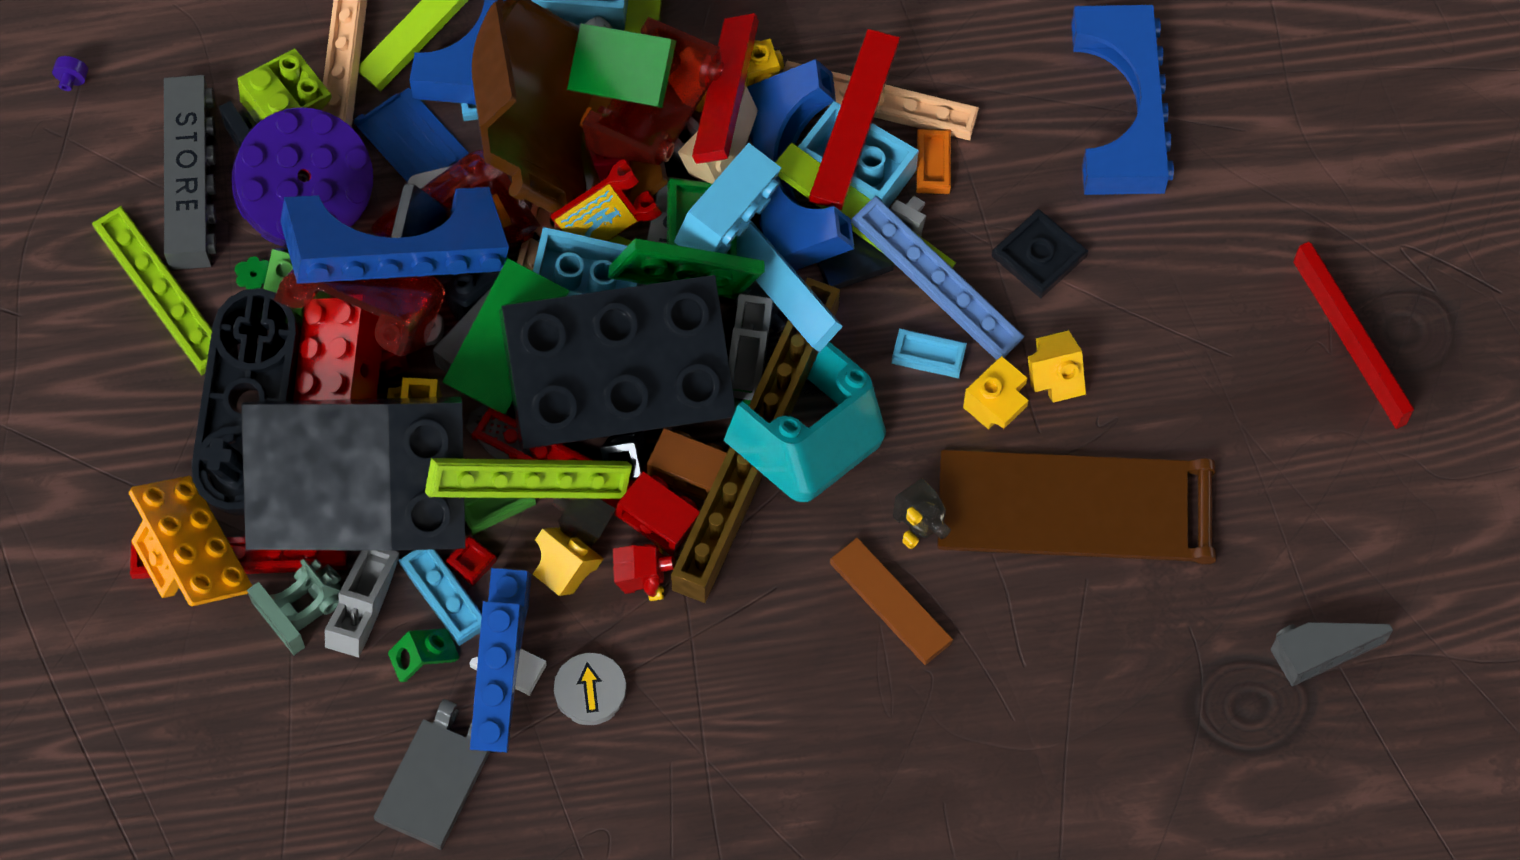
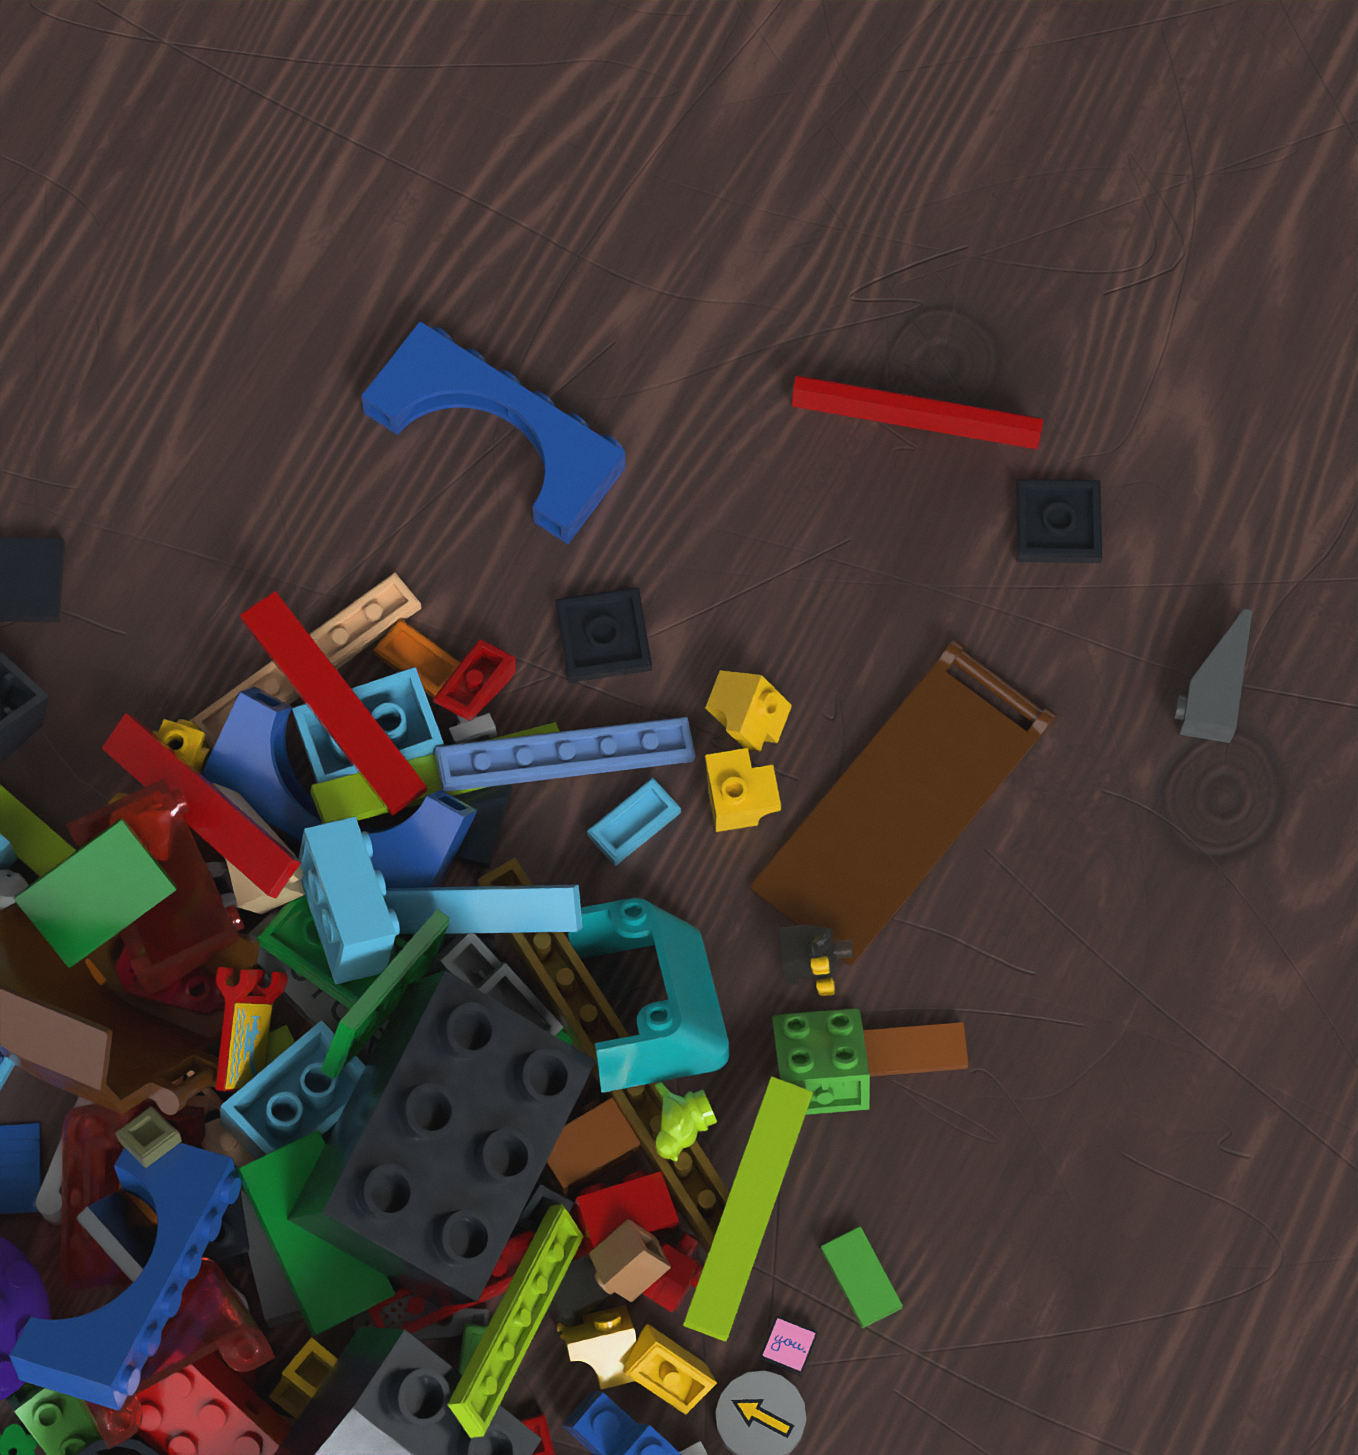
camera: 55 degrees left, 5 degrees up
(488, 194) = (148, 1136): none -> olive tile
(576, 607) = (668, 1370): none -> yellow slope
(625, 529) = (628, 1261): none -> medium nougat brick
(650, 675) = (788, 1346): none -> bright pink tile
(713, 576) = (748, 1209): none -> lime tile
(730, 690) = (861, 1277): none -> bright green tile
(739, 496) = (681, 1121): none -> lime animal
(853, 567) = (824, 1056): none -> bright green bracket
(943, 196) = (476, 680): none -> red slope
(1355, 473) = (1058, 521): none -> black tile

